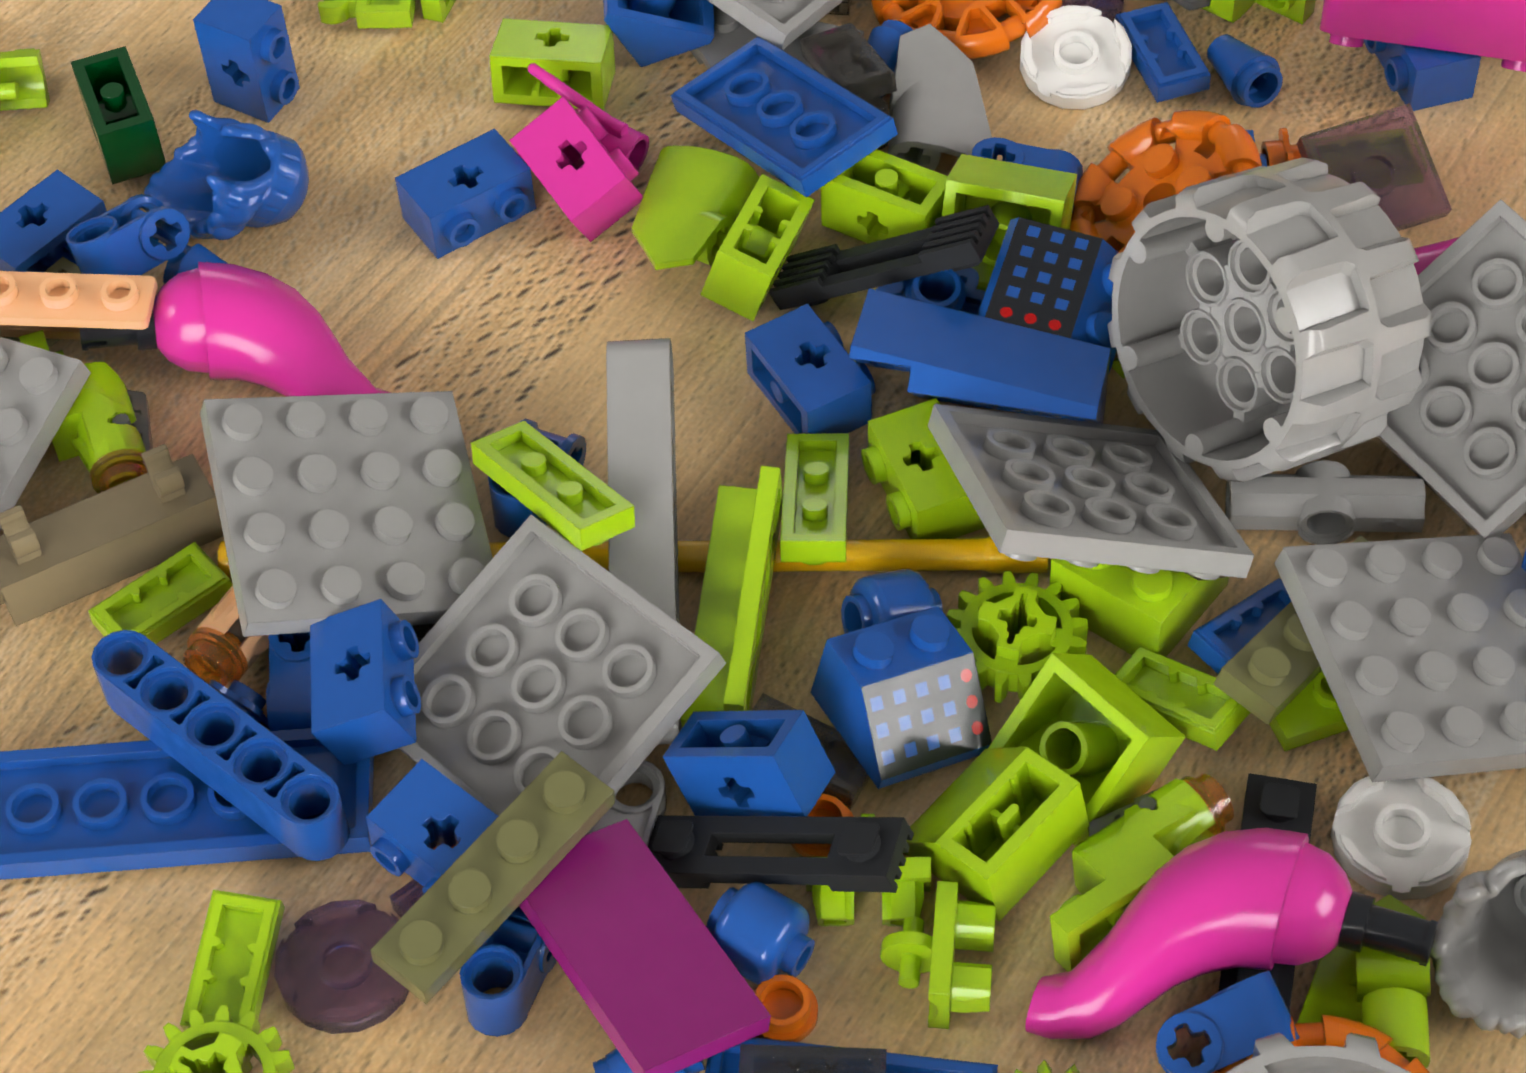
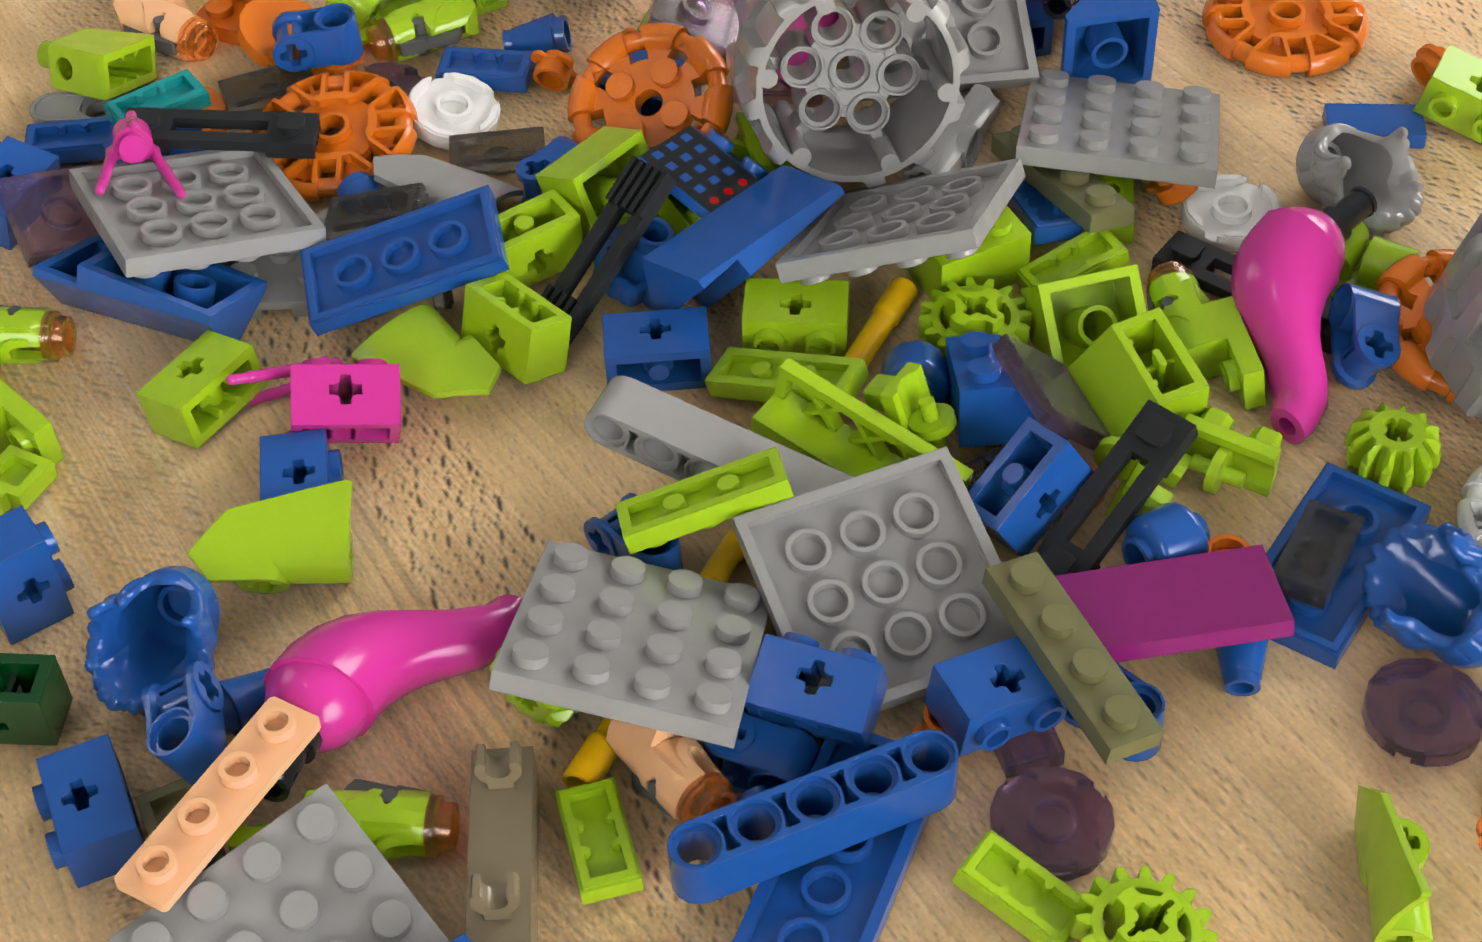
camera: 65 degrees left, 5 degrees down
(383, 210) = (281, 541): none -> lime panel
(806, 616) = (910, 404): none -> lime hips
(907, 736) = (1050, 392): none -> tile
(1034, 116) = (495, 151): none -> clear smoke plate
(1196, 97) = (553, 69): none -> orange plate

